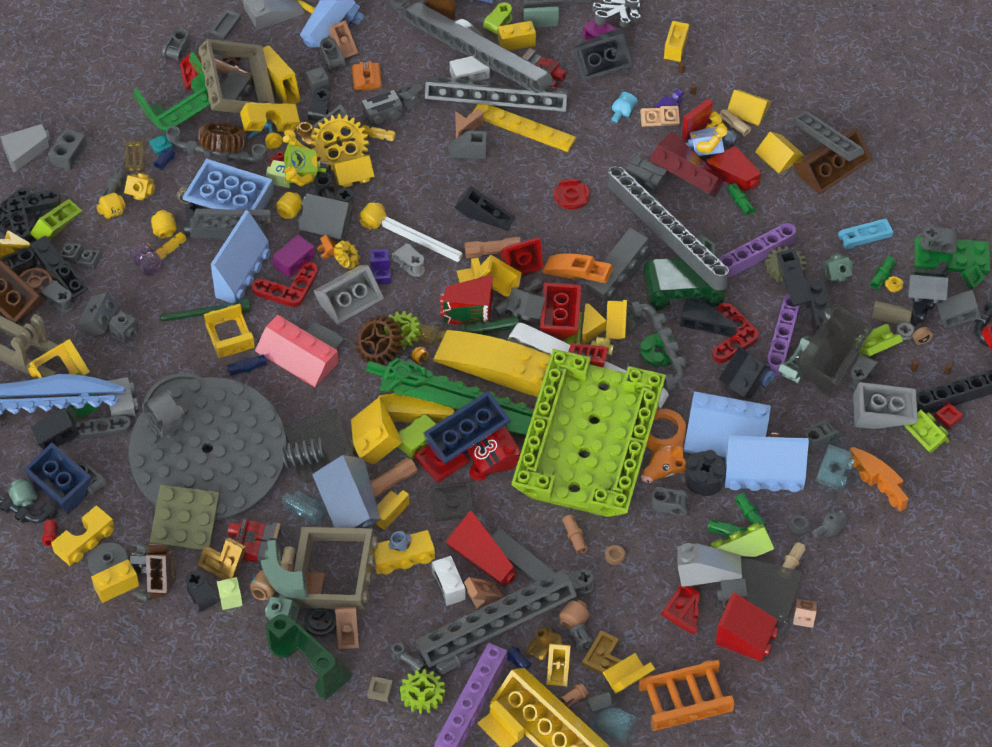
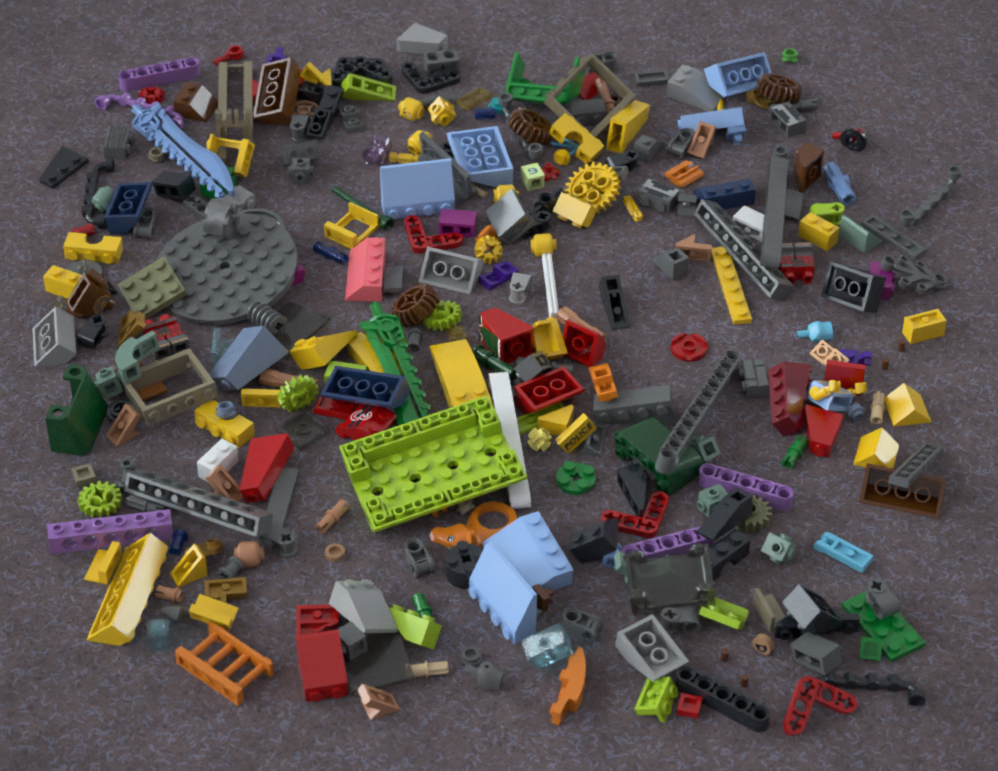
camera: 55 degrees right, 10 degrees down
(77, 176) = (426, 85): none -> black beam
(183, 627) = (54, 339): none -> light grey slope
(229, 593) = (103, 347): yellowish green brick -> none
(300, 161) = (543, 174): torso -> none
(417, 63) = (728, 194): none -> dark blue slope
(419, 352) = (433, 338): light orange plate -> none
(419, 479) = (298, 393): none -> lime gear
(599, 351) = (516, 437): red slope -> none
(664, 334) = (578, 478): dark grey bar -> none
(749, 511) = (460, 608): green pin -> none
(758, 278) = (710, 498): none -> sand green brick
(883, 272) = (812, 584): green pin -> none
(909, 328) = (760, 626): light grey bush -> none

